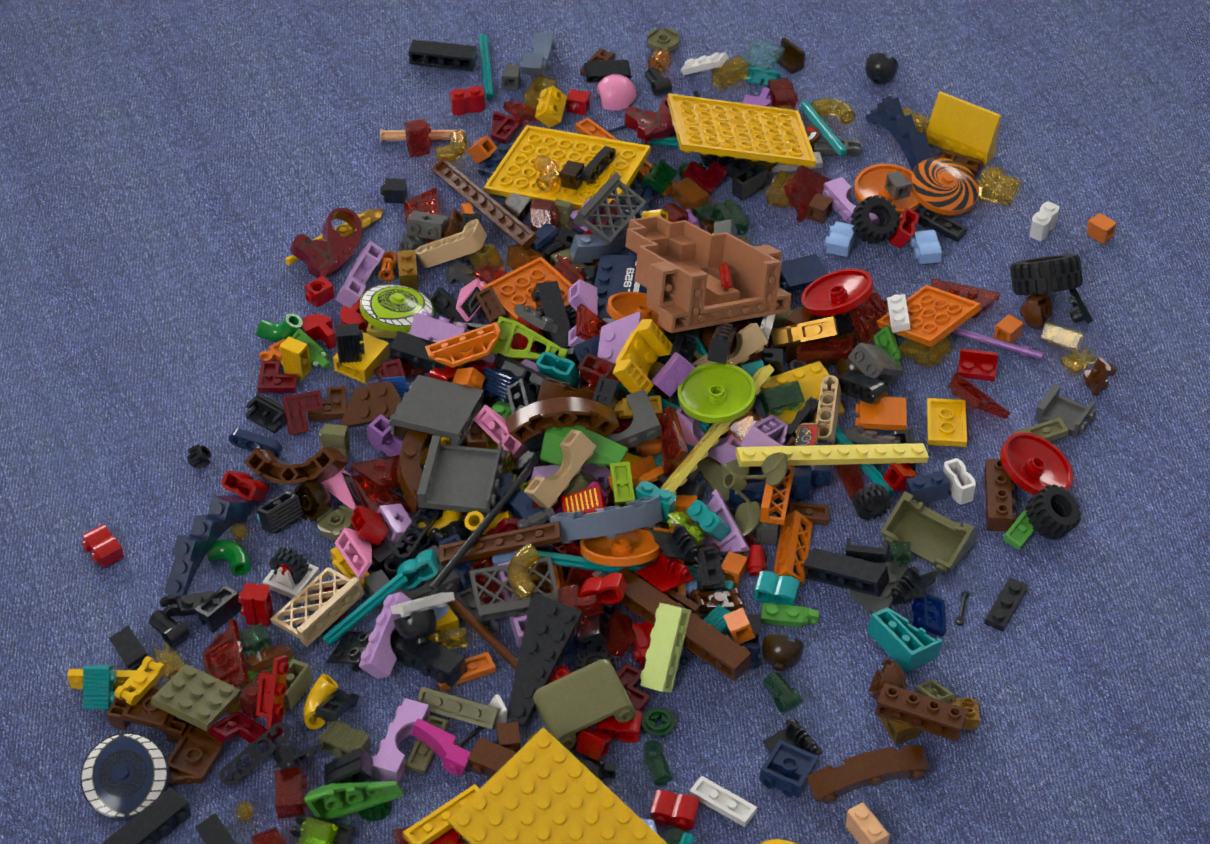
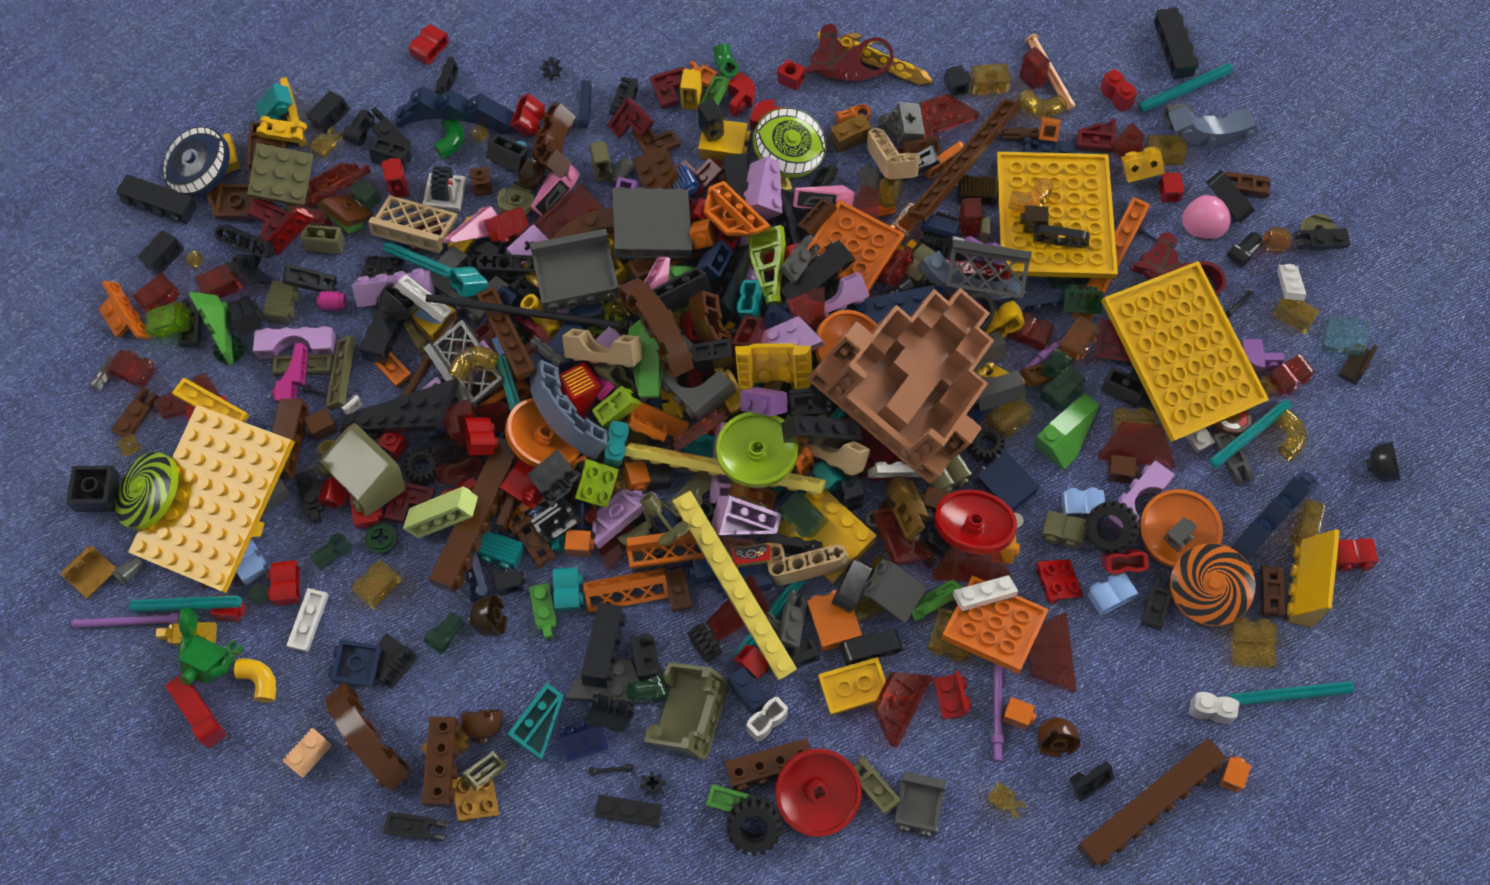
camera: 70 degrees right, 20 degrees up
(158, 543) = (448, 76): none -> black hinge
(299, 539) = (481, 181): none -> reddish brown brick
(319, 692) = (323, 263): yellow cylinder -> none
(355, 441) = (623, 169): none -> dark grey cone
(359, 274) = (823, 97): lavender arch -> none
(367, 698) = (331, 301): none -> dark pink brick
(407, 167) = (990, 78): none -> clear yellow brick
(472, 169) = (1020, 133): none -> reddish brown axle
(674, 35) = (1322, 239): none -> black hinge
(708, 520) = (613, 499): teal brick -> none
(708, 734) = (376, 584): none -> clear yellow brick
(725, 276) = (926, 404): red axle -> none
(739, 626) = (490, 567): orange brick -> none
(756, 560) = (591, 561): red cone -> none
(757, 74) = (1308, 341): teal hinge -> none
(770, 230) = (1067, 432): none -> bright green wedge
(859, 255) = (1064, 530): none -> olive brick
(907, 272) = (1058, 580): none -> red hinge
(915, 401) = (871, 646): none -> black beam
(969, 765) = (412, 826): none -> black hinge
(990, 577) = (658, 787): none -> black gear
(1046, 177) = (1293, 693): none -> teal axle
(1046, 274) = (1101, 729): black tyre -> none
(1062, 336) = (1029, 772): clear yellow brick -> none
(1097, 377) = (979, 825): reddish brown hips -> none
(1109, 280) = (1150, 803): none -> reddish brown brick

